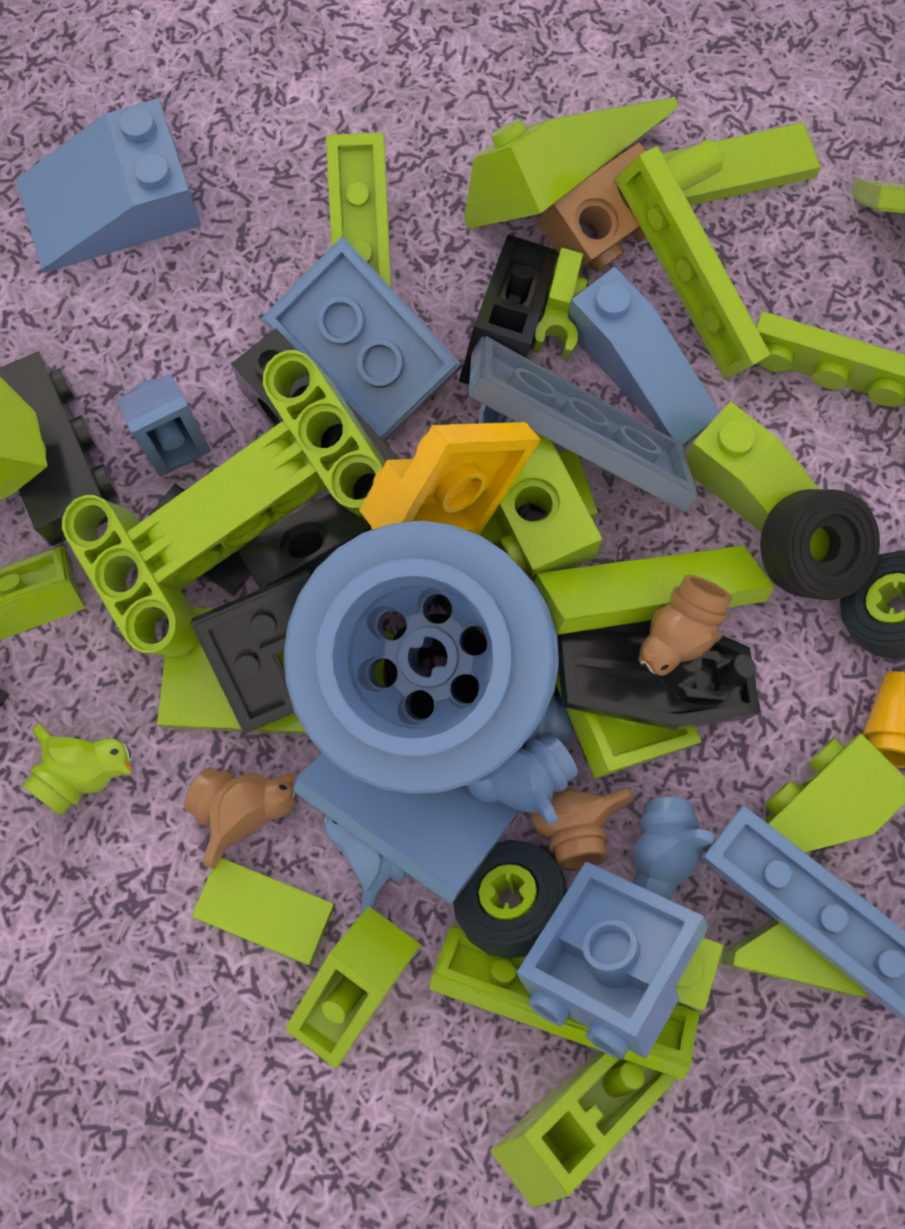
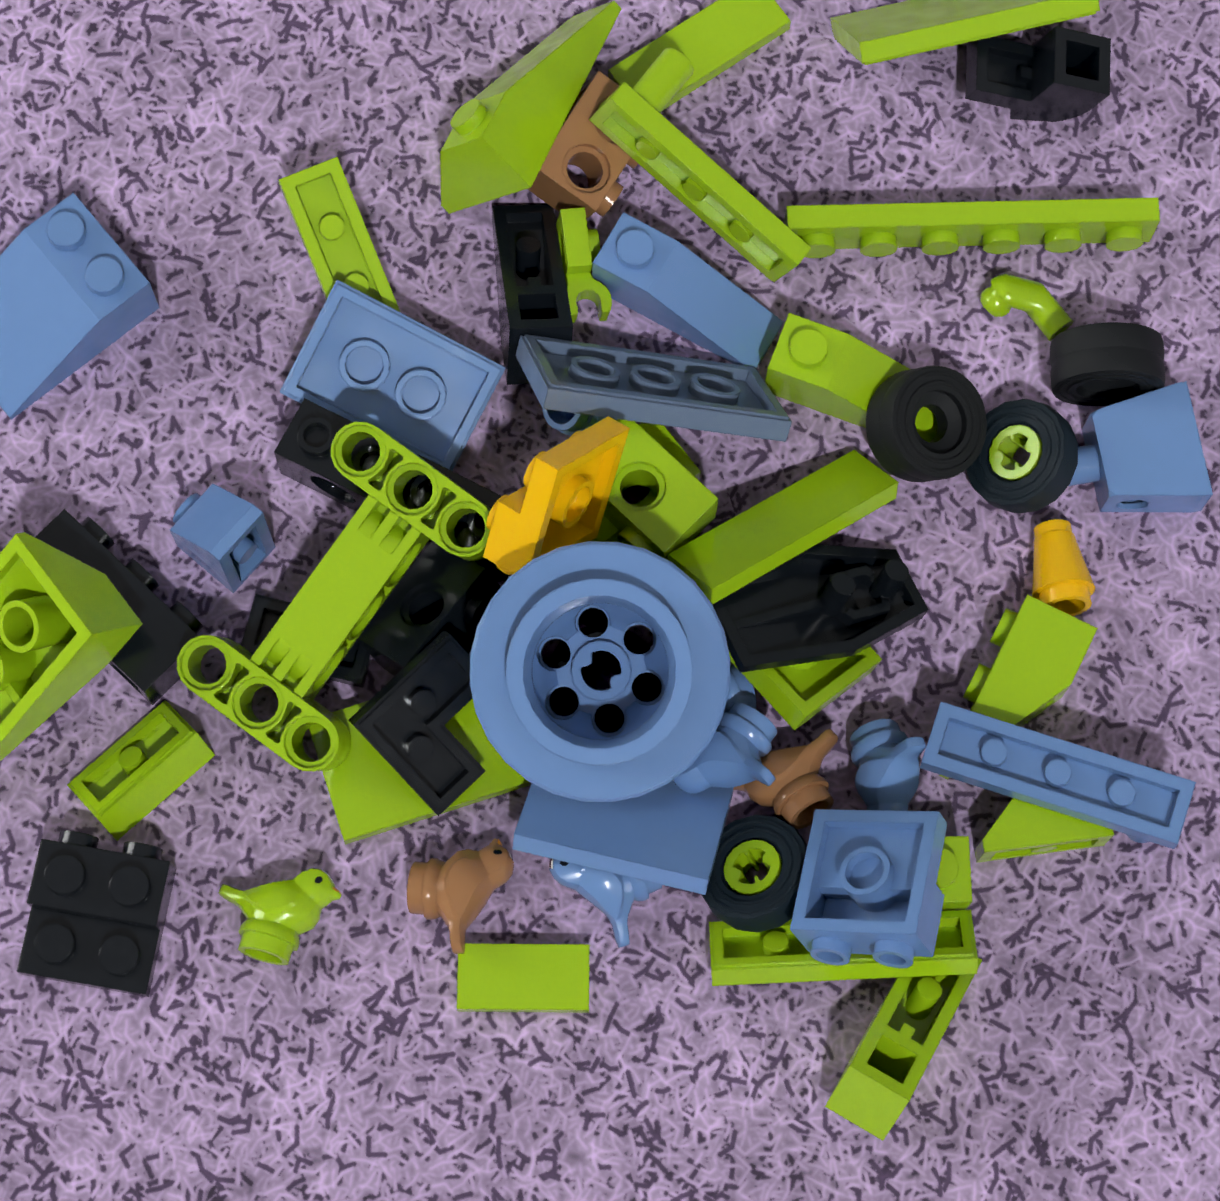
camera: 25 degrees left, 0 degrees up
(351, 986) = (638, 1013): lime slope -> none
(686, 625) = (826, 552): medium nougat animal -> none

